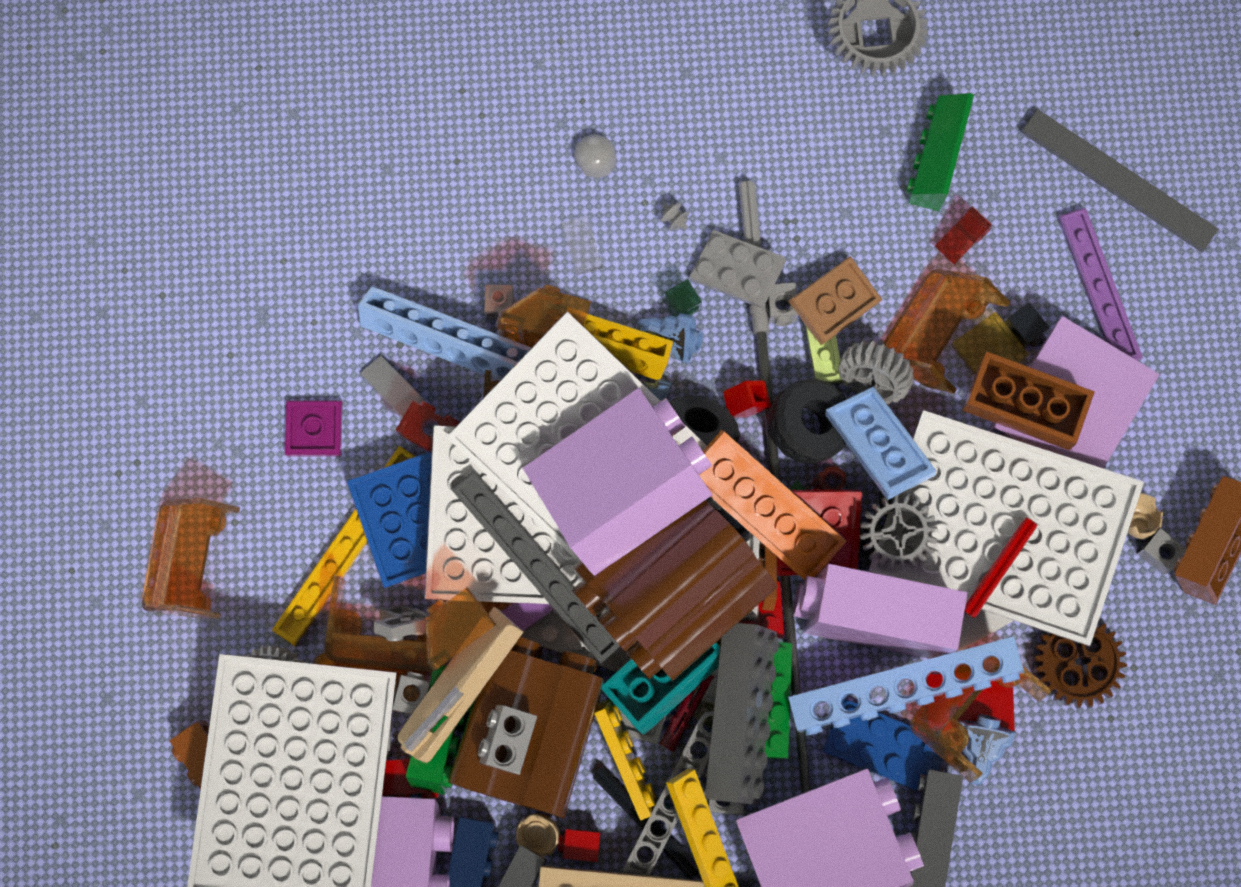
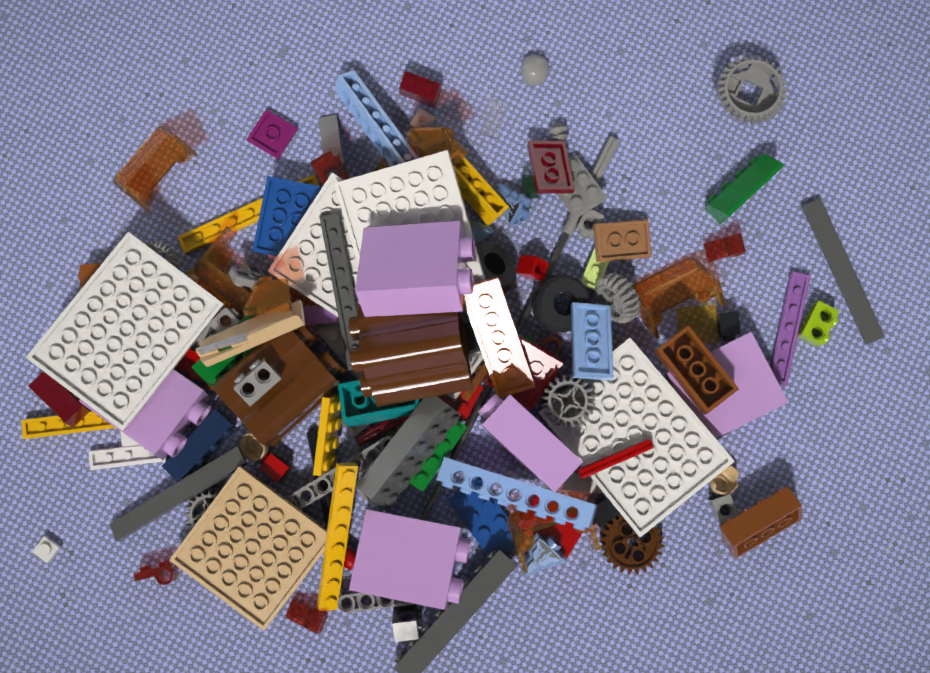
camera: 40 degrees right, 5 degrees up
(469, 262) = (420, 89): none -> dark red brick
(693, 261) = (550, 167): none -> dark red plate
(1028, 641) = (605, 512): none -> black slope
(1124, 260) = (814, 321): none -> lime brick

